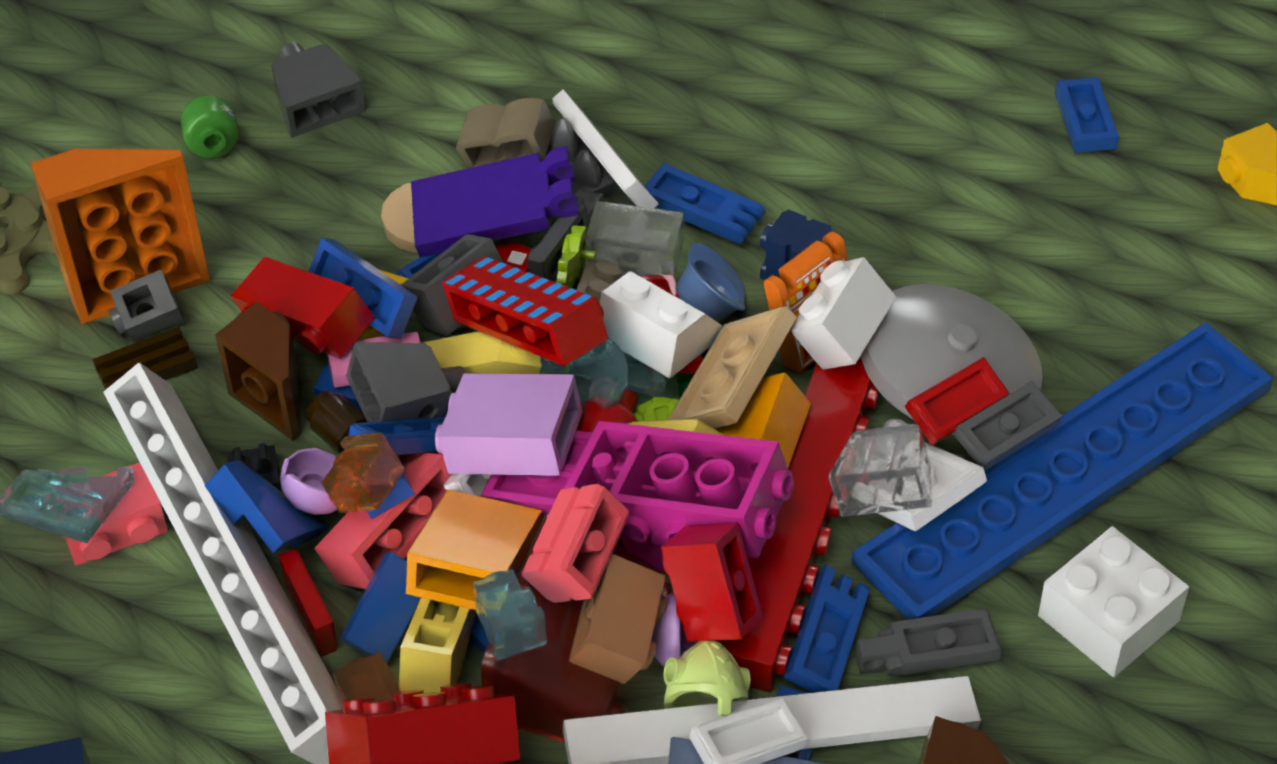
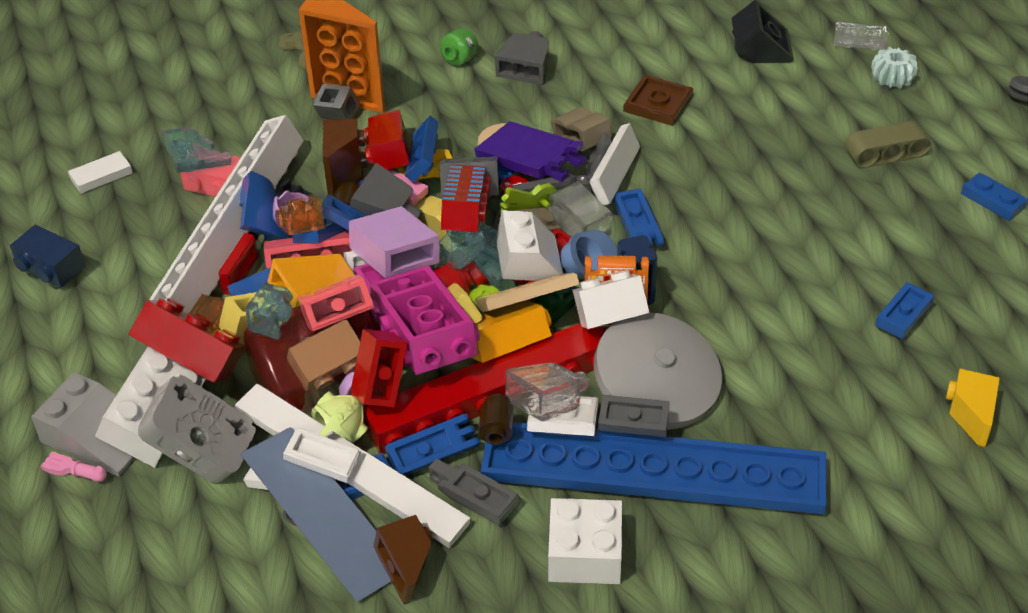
camera: 45 degrees right, 5 degrees down
(148, 353) = (308, 126): dark brown tile -> none
(532, 41) = (658, 100): none -> reddish brown tile
(876, 543) = (496, 419): none -> dark brown brick
(956, 400) = (620, 382): red tile -> none

